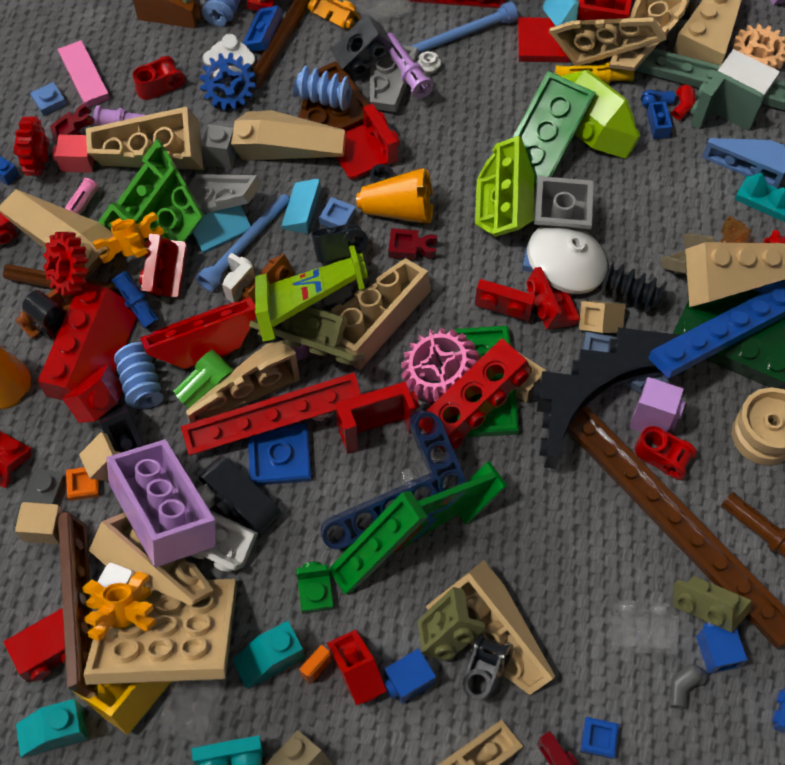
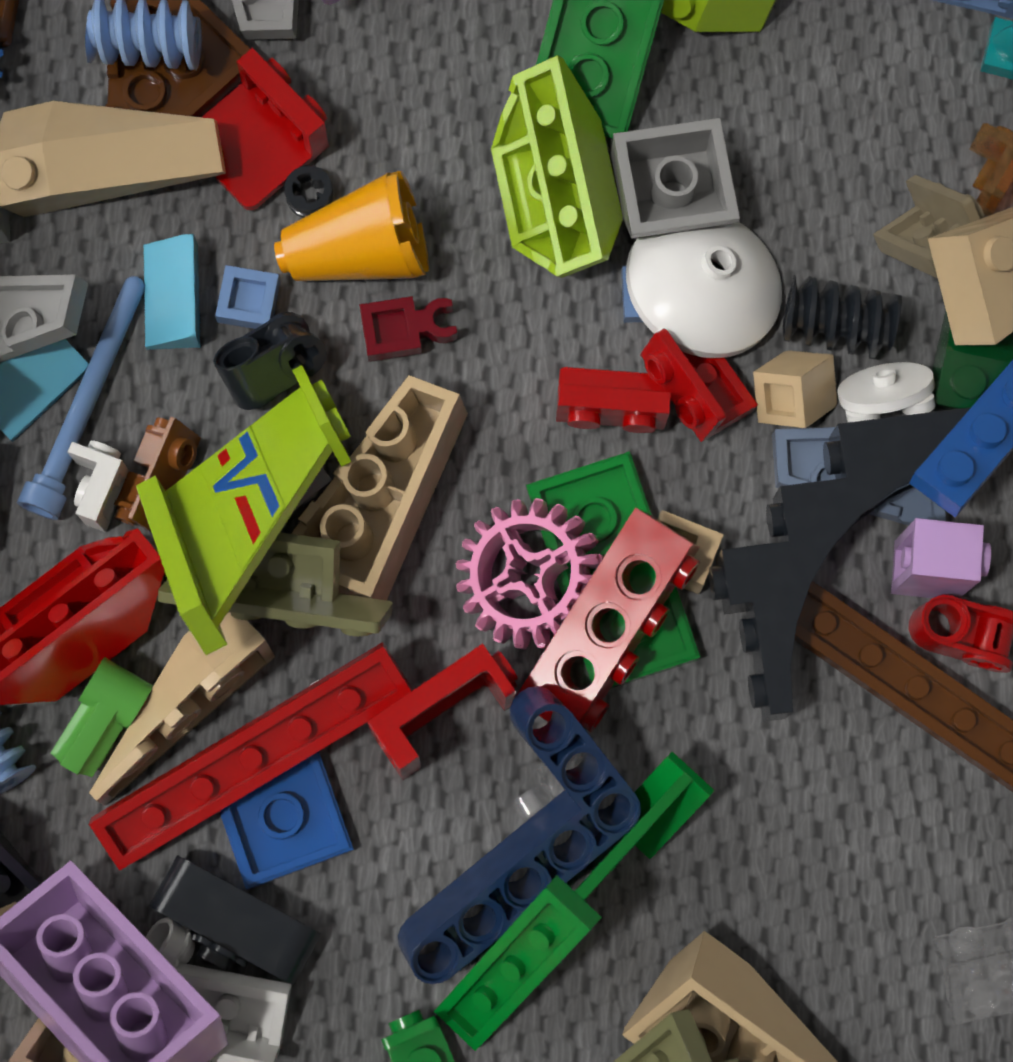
camera: 20 degrees left, 15 degrees up
(649, 321) = (887, 390): none -> white piece

